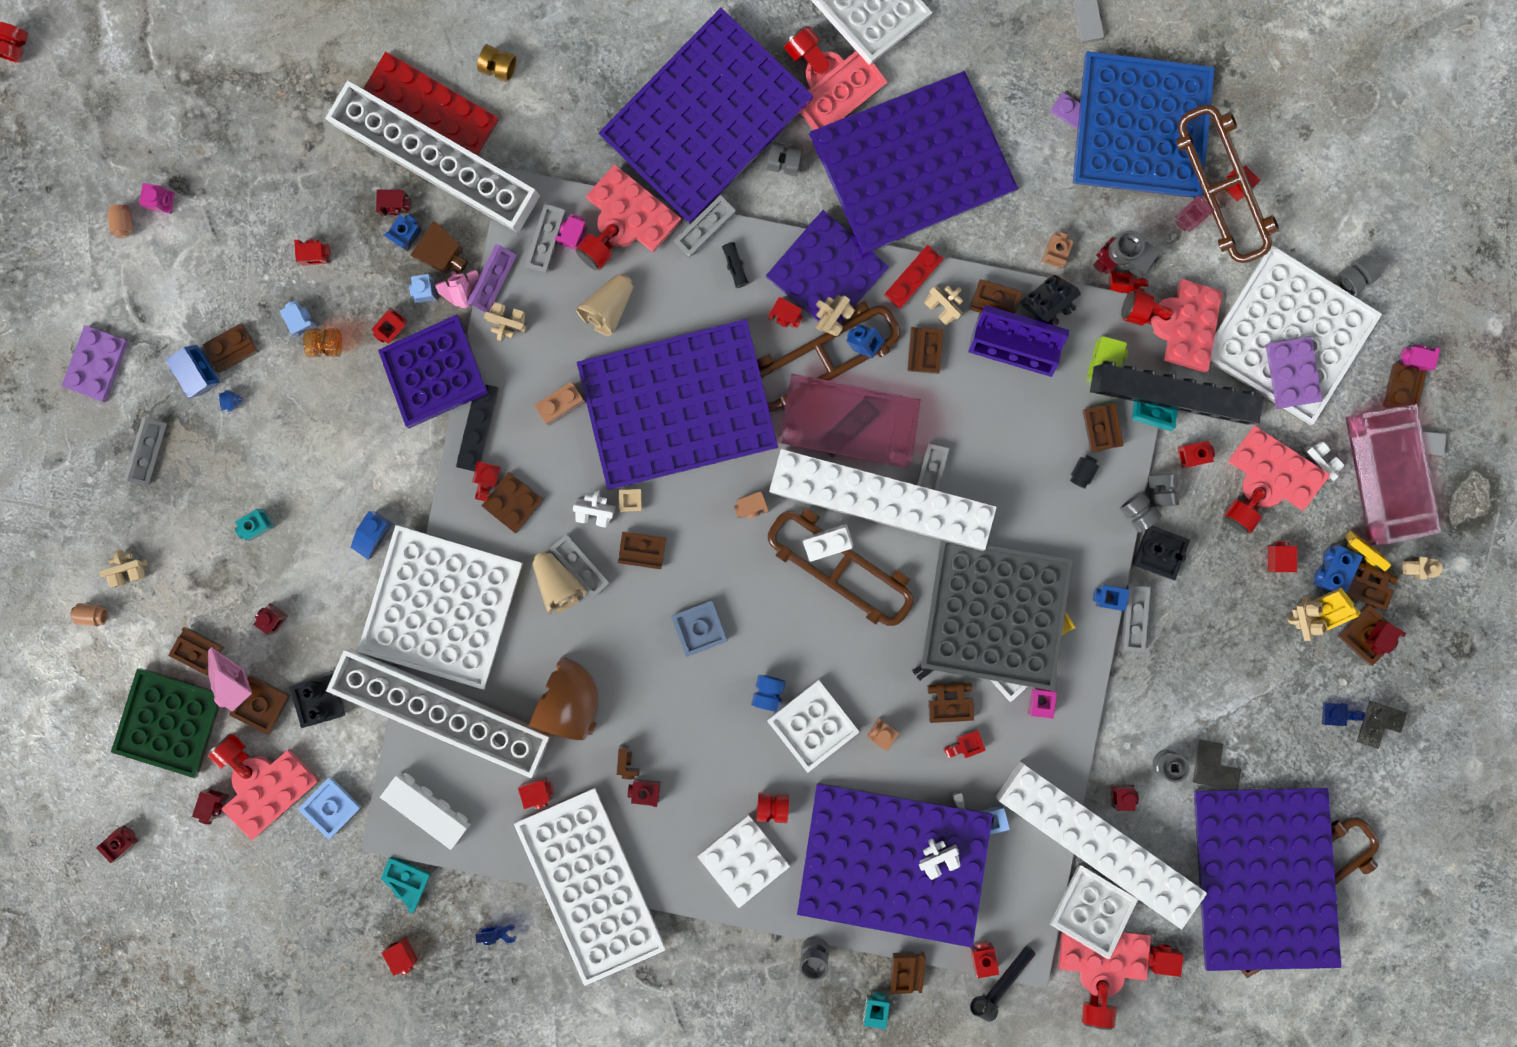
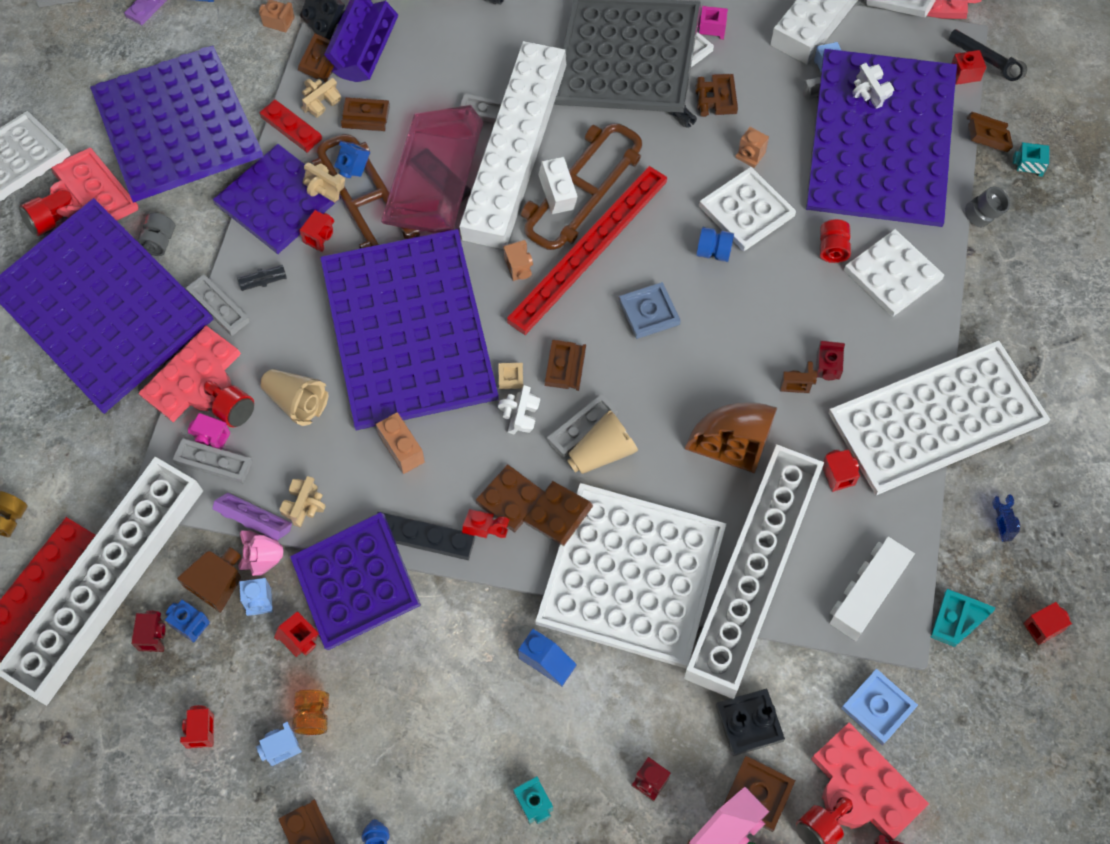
camera: 90 degrees left, 25 degrees down
(492, 544) = (558, 513): none -> reddish brown plate
(767, 572) = (586, 251): none -> red plate
(968, 744) = (759, 81): red plate -> none

